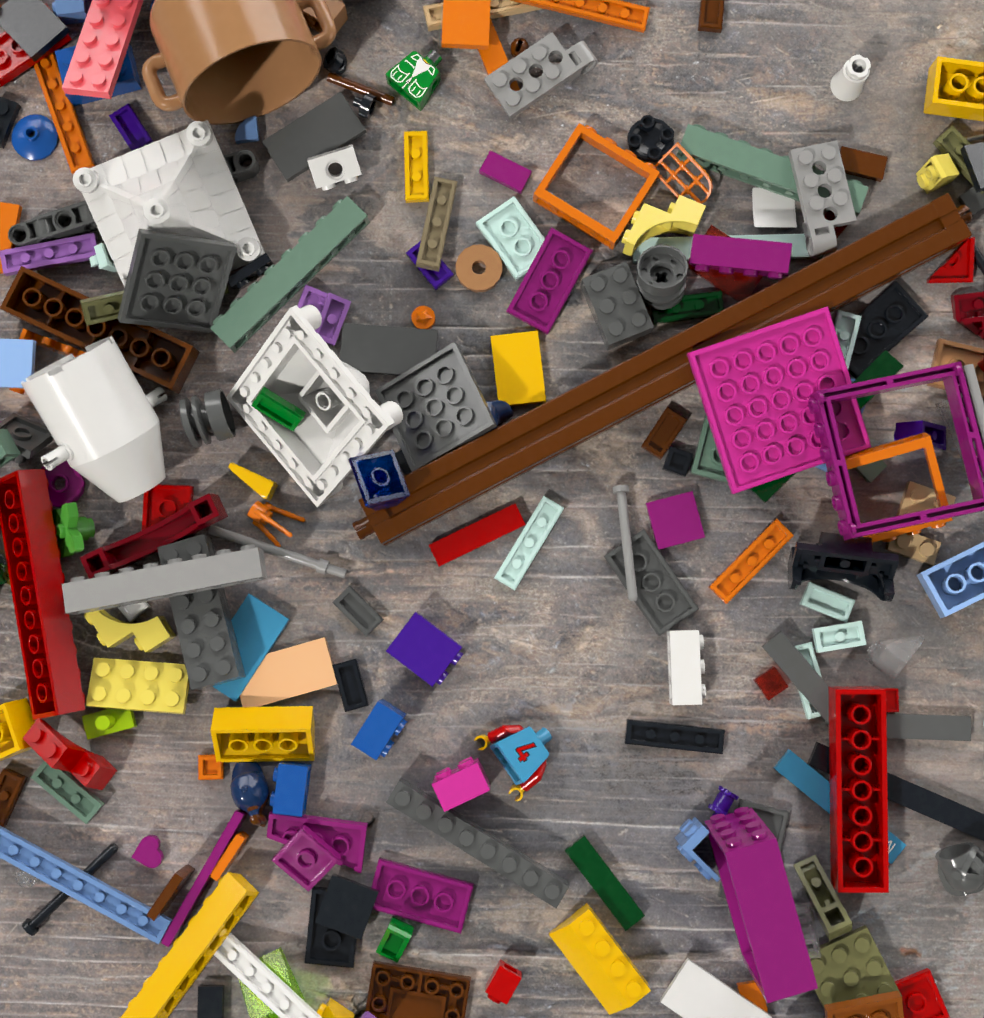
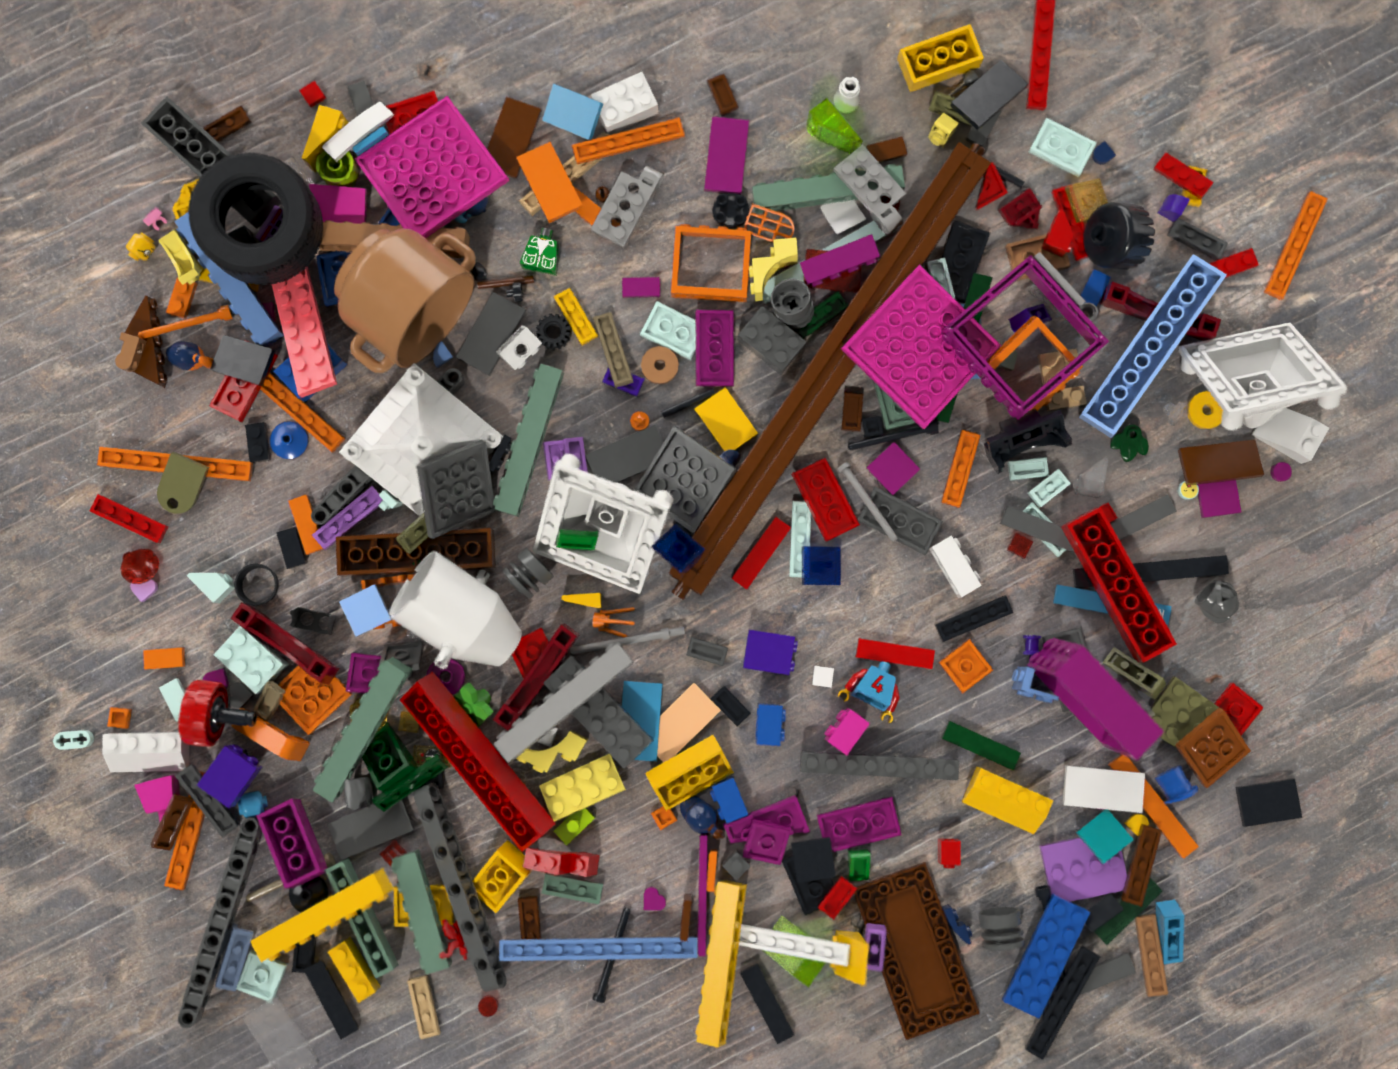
camera: 35 degrees left, 0 degrees up
(130, 127) = (356, 397): dark purple tile -> none
(259, 864) = (736, 864): none -> dark grey brick
(350, 963) = (837, 897): none -> red tile
(372, 160) = (545, 324): none -> black tyre
(470, 708) = (822, 676): none -> white tile
(487, 326) = (687, 403): none -> black bar
(535, 584) = (821, 565): none -> clear blue tile
(564, 727) = (895, 653): none -> red tile
(580, 514) = (825, 499): none -> red tile
(636, 784) = (965, 666): none -> orange tile
(679, 76) = (726, 155): none -> magenta tile
(741, 498) = (931, 429): none -> black piece
(812, 104) = (831, 128): none -> clear neon green slope
(957, 639) = (1130, 446): none -> dark green plate

